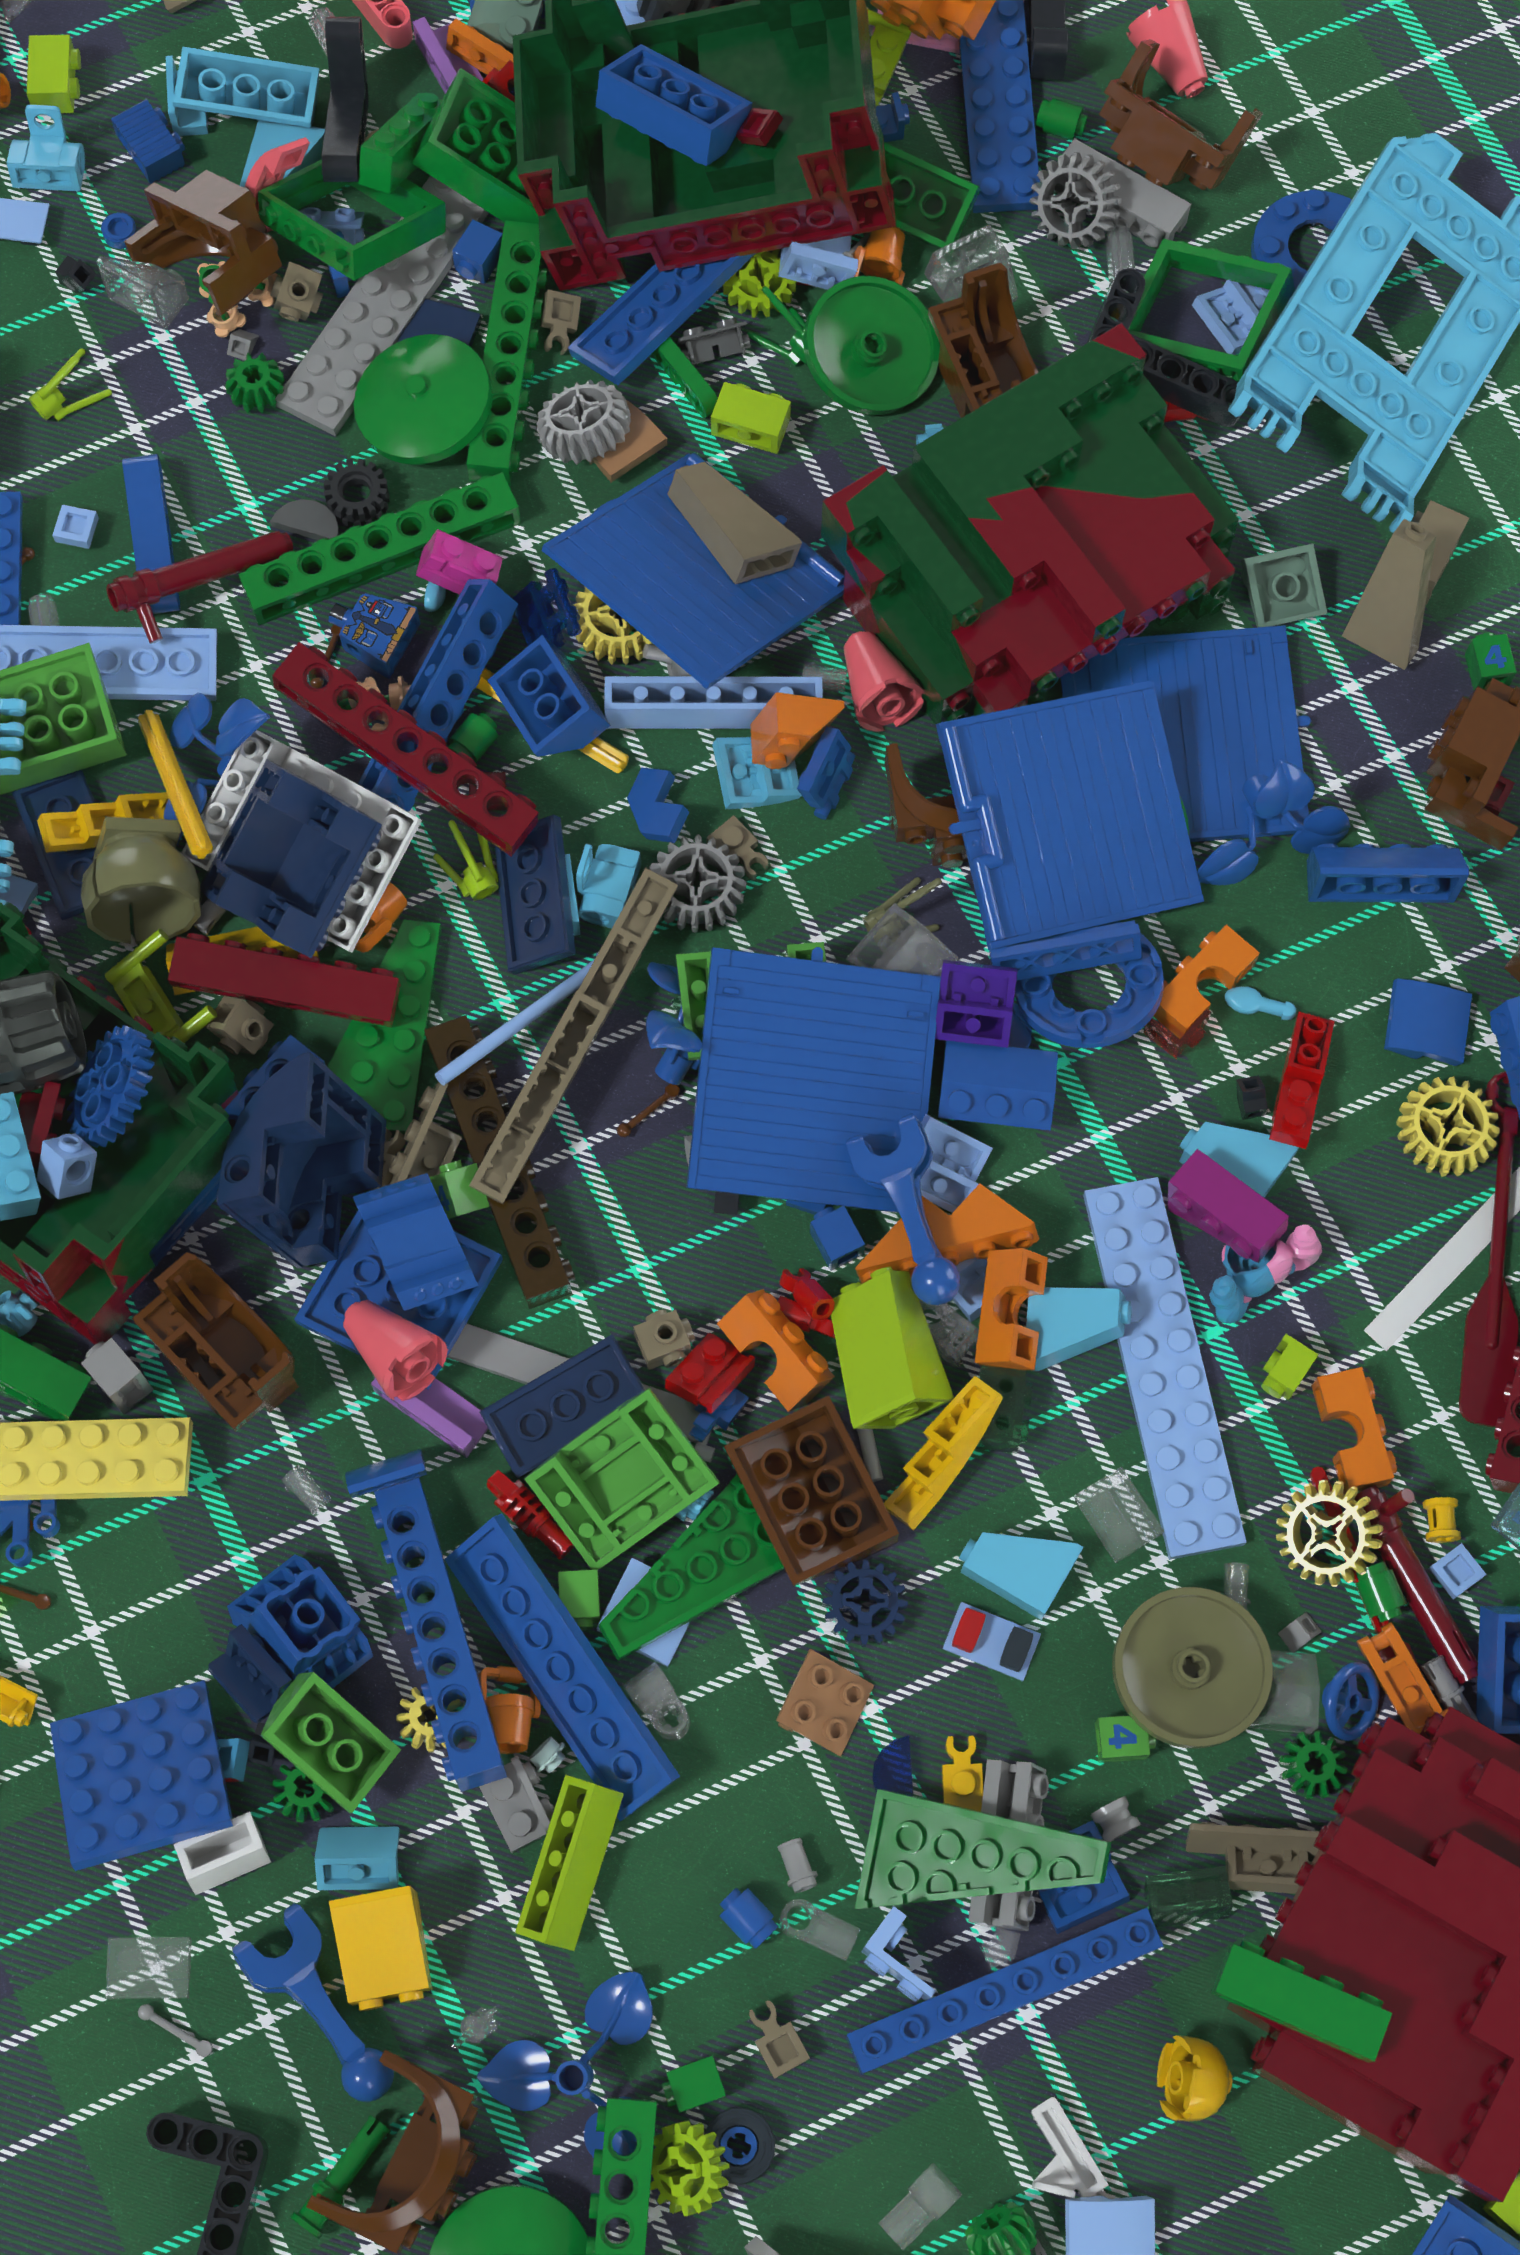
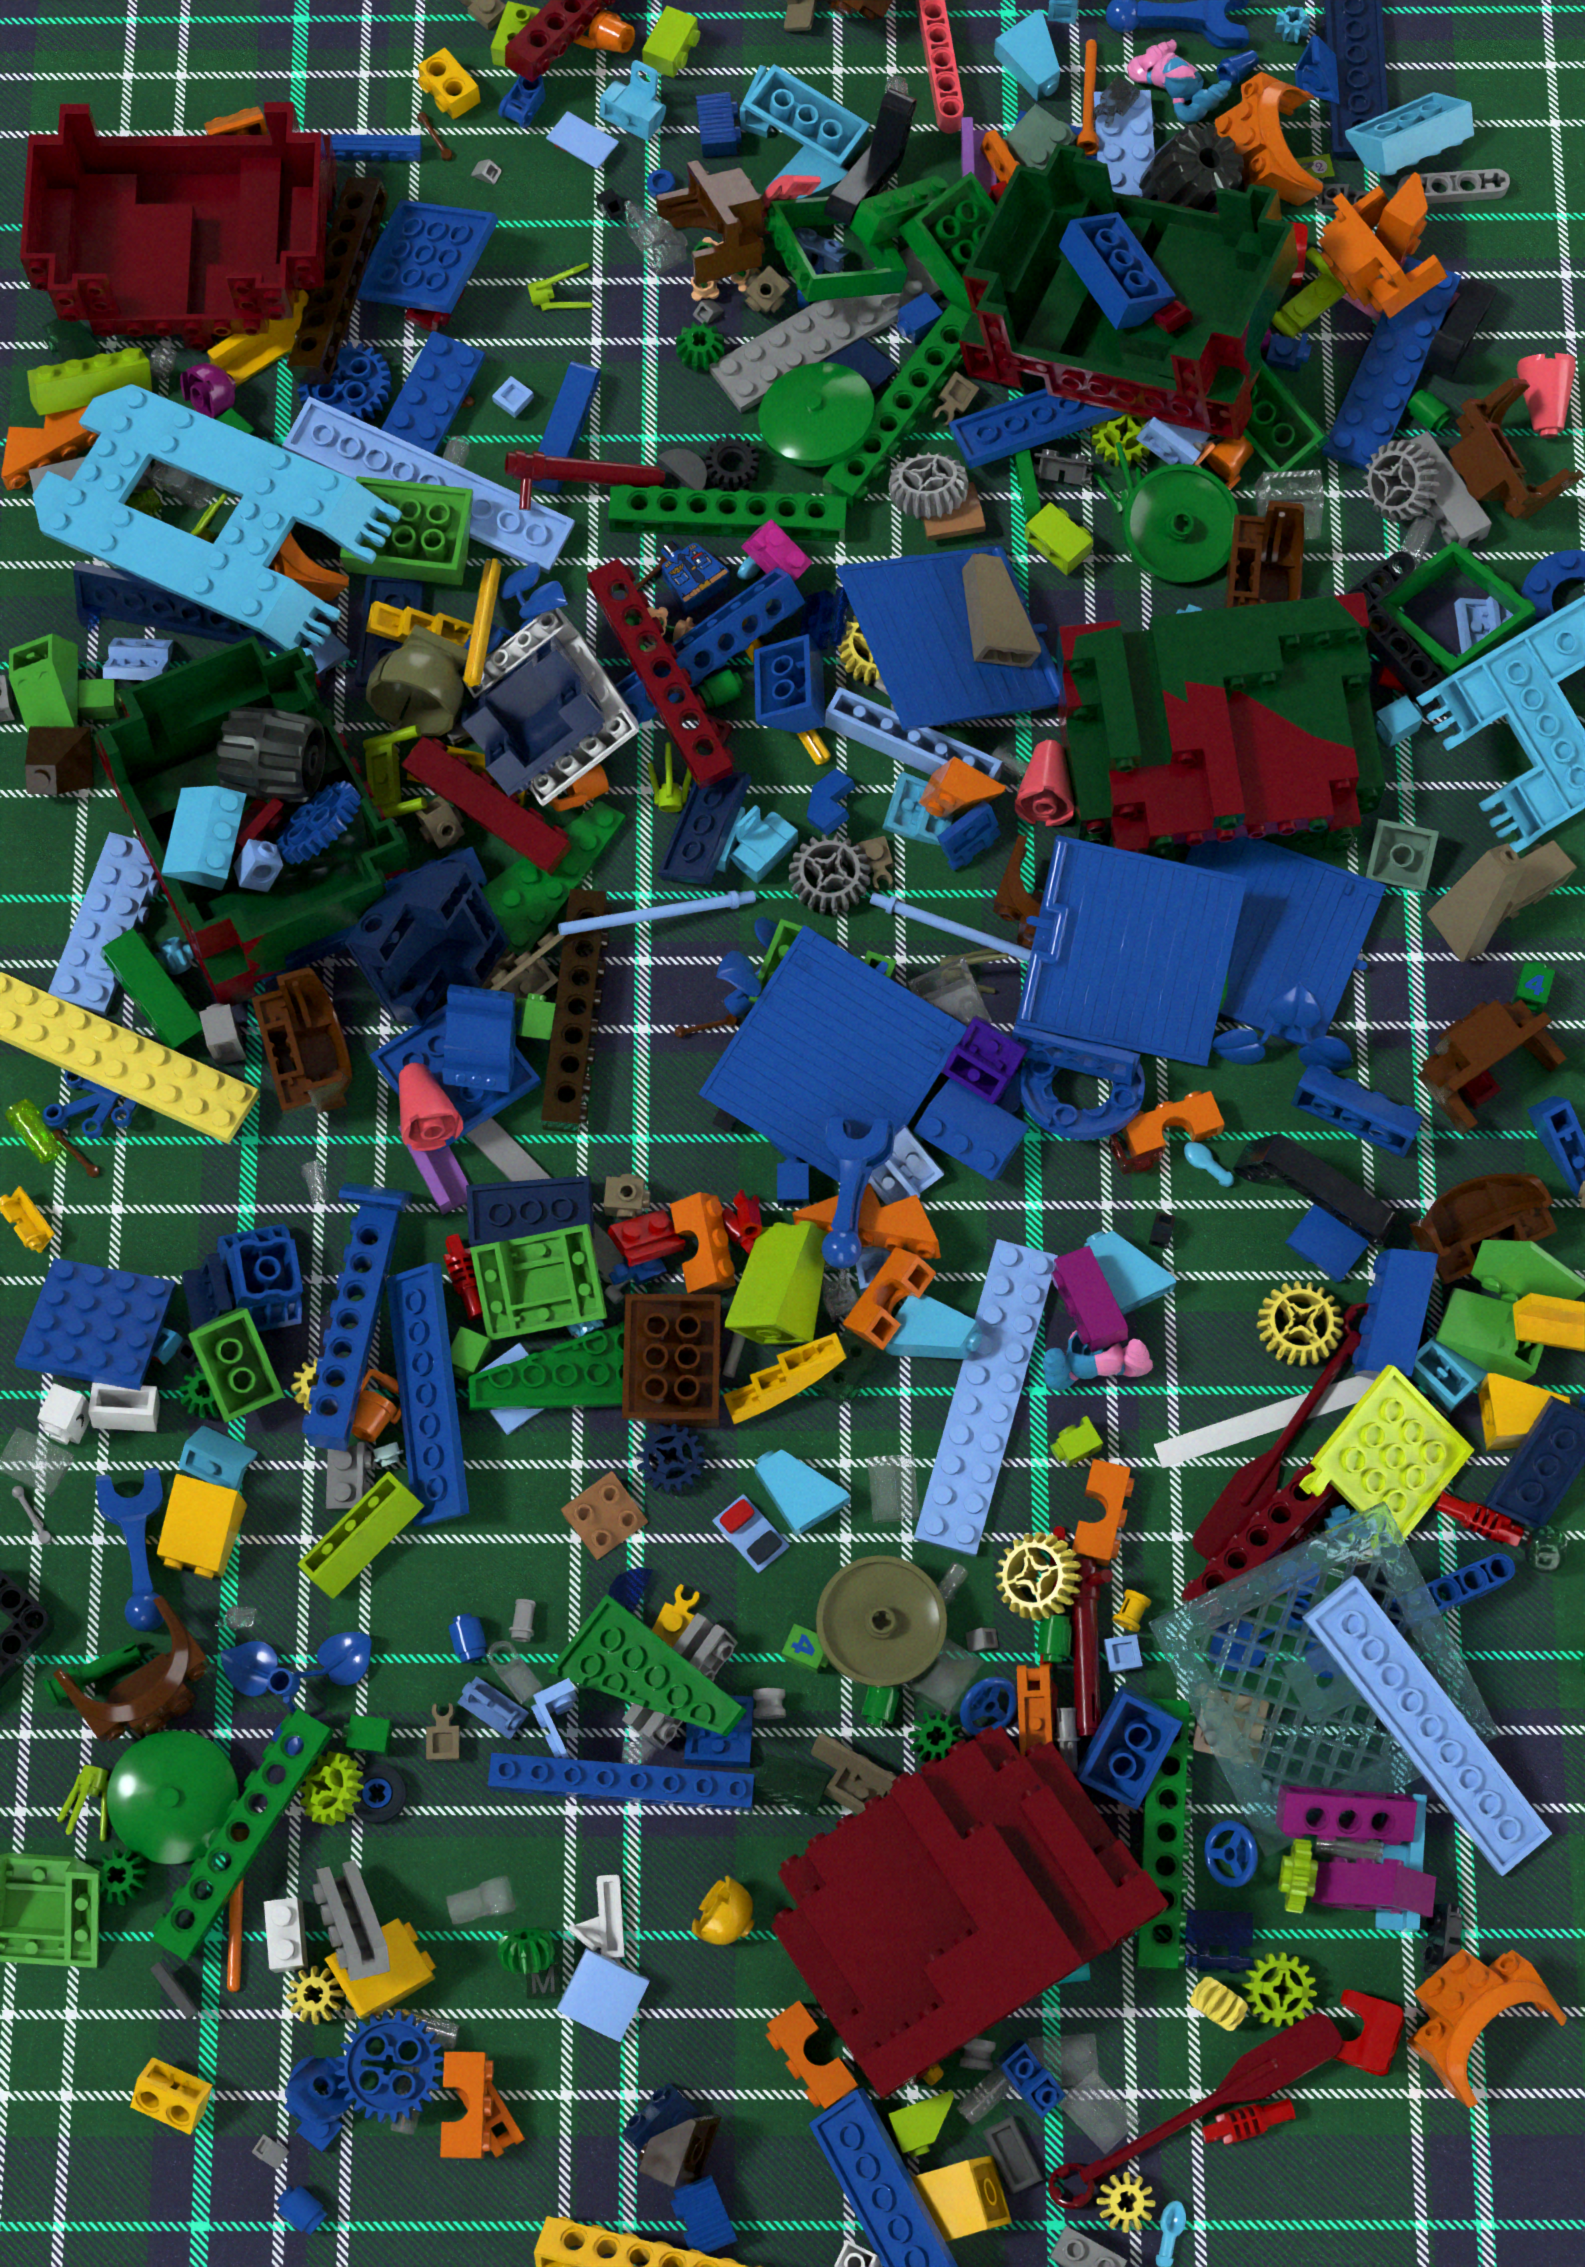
camera: 30 degrees right, 0 degrees up
(159, 1897) = (64, 1415): none -> white brick
(573, 1036) = (675, 944): dark tan slope -> none
(655, 1698) = (485, 1451): clear piece -> none
(815, 1980) = (492, 1707): none -> medium blue hinge
(861, 879) = (893, 905): none -> light blue bar
(1207, 446) = (1398, 721): none -> medium azure brick
(1235, 1761) = (880, 1706): none -> green brick
(1301, 1080) = (1205, 1235): red slope -> none
(1301, 2002) = (815, 1887): green brick -> none
(1387, 966) = (1318, 1182): none -> black beam
(1402, 2208) = (826, 2082): none -> orange arch

